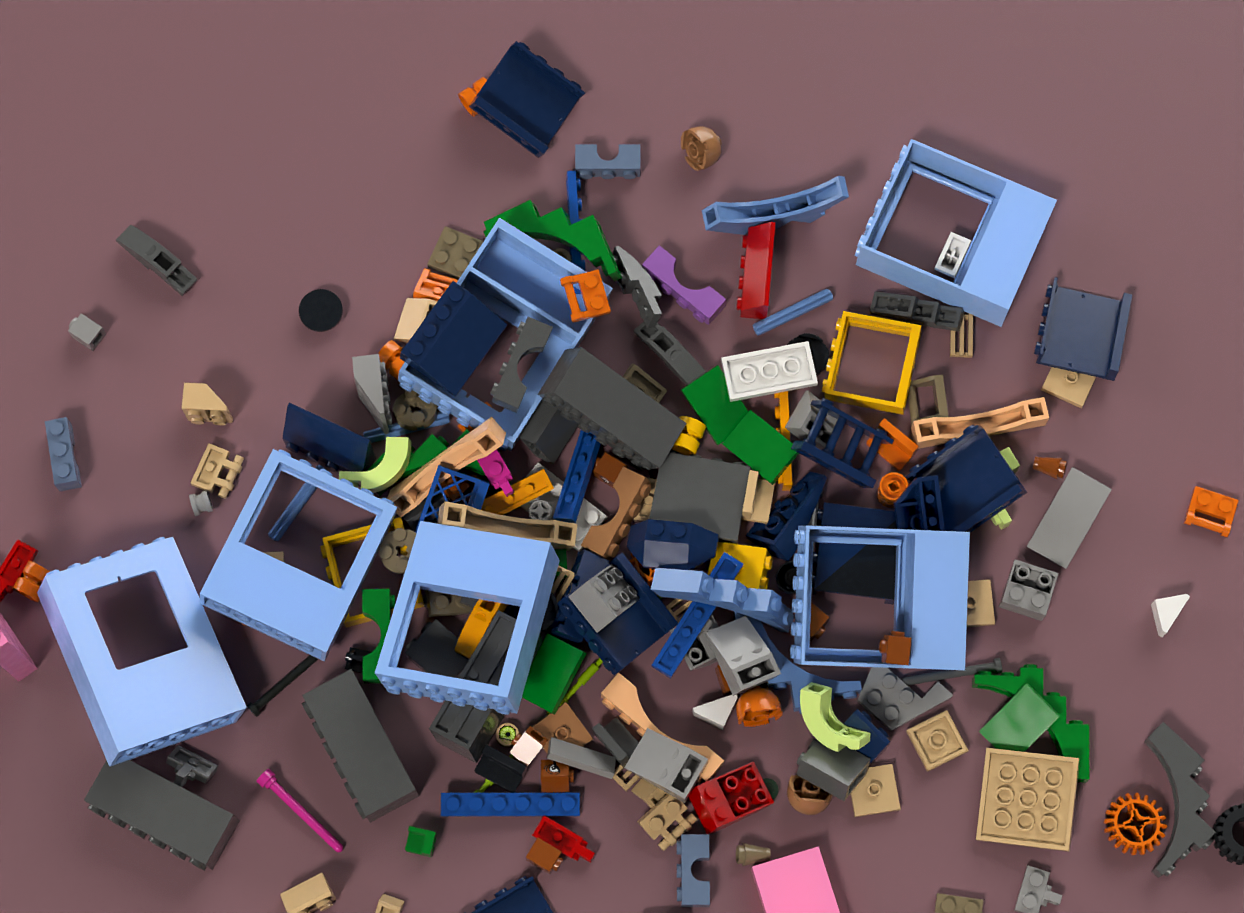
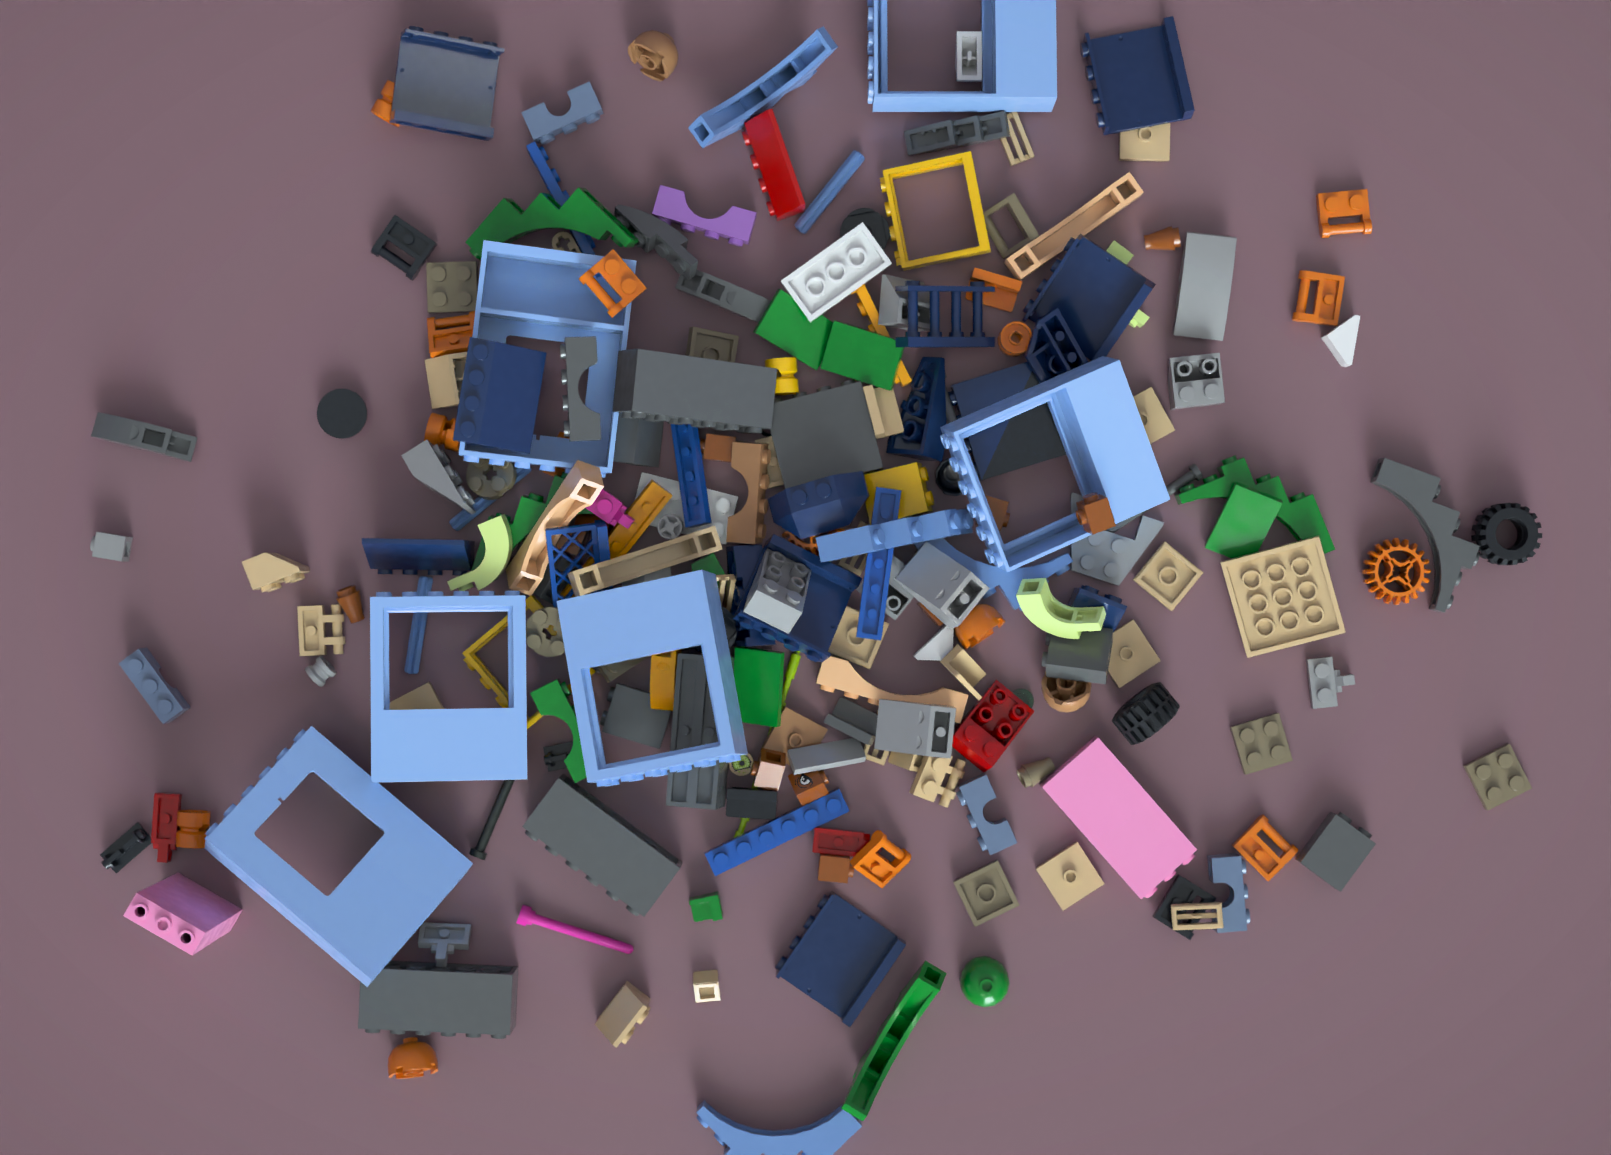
camera: 20 degrees left, 15 degrees up
(112, 855) = (412, 1059): none -> orange cylinder
(252, 460) = (350, 601): none -> dark orange cone
(439, 203) = (408, 240): none -> black plate
(580, 869) = (876, 866): none -> orange plate
(648, 680) = (850, 647): none -> tan plate
(730, 738) = (964, 669): none -> tan panel
(867, 842) = (1145, 713): none -> black tyre
(1167, 574) = (1327, 298): none -> orange plate

